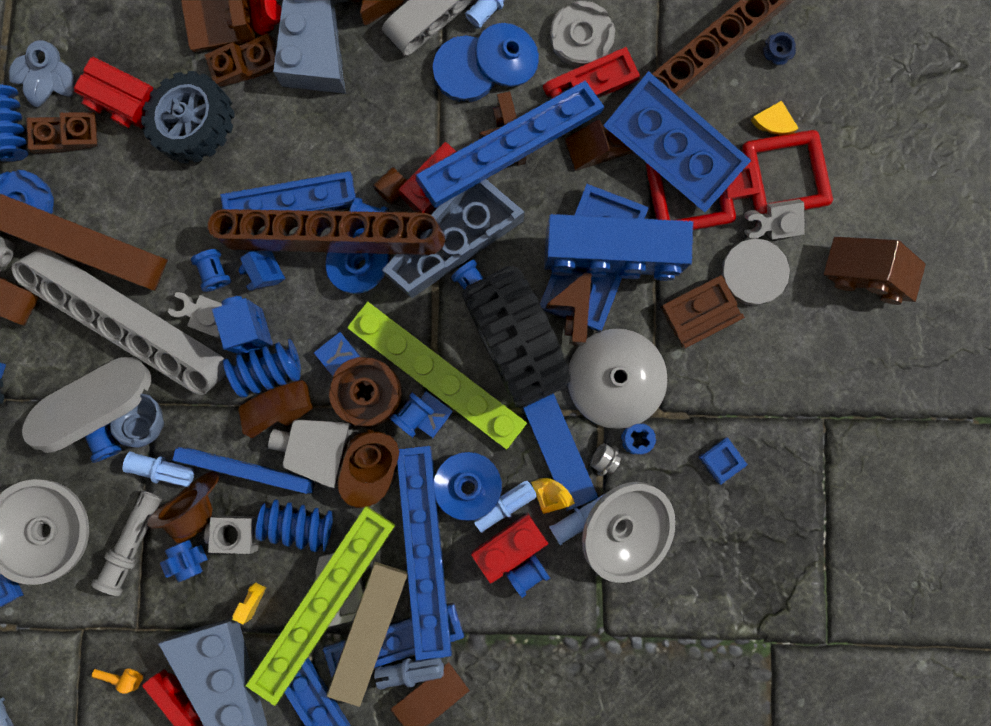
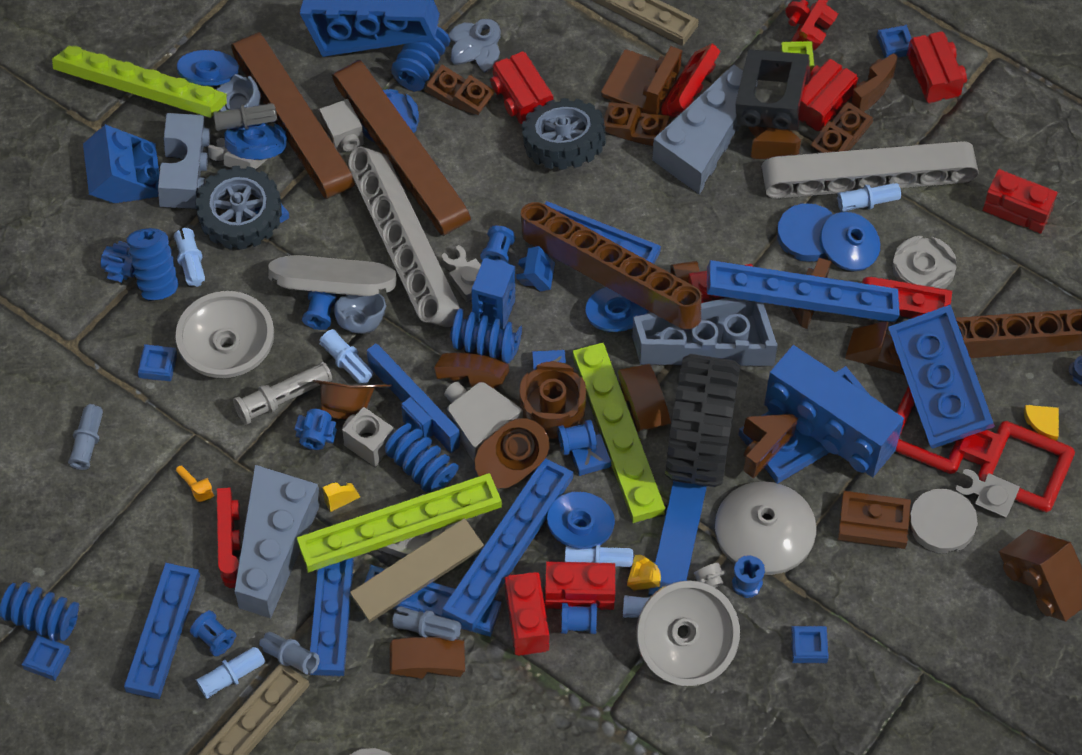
camera: 35 degrees right, 25 degrees down
(262, 490) = (417, 417): none -> blue tile
(439, 330) = (645, 397): none -> reddish brown slope
(484, 605) = (527, 613): none -> red brick

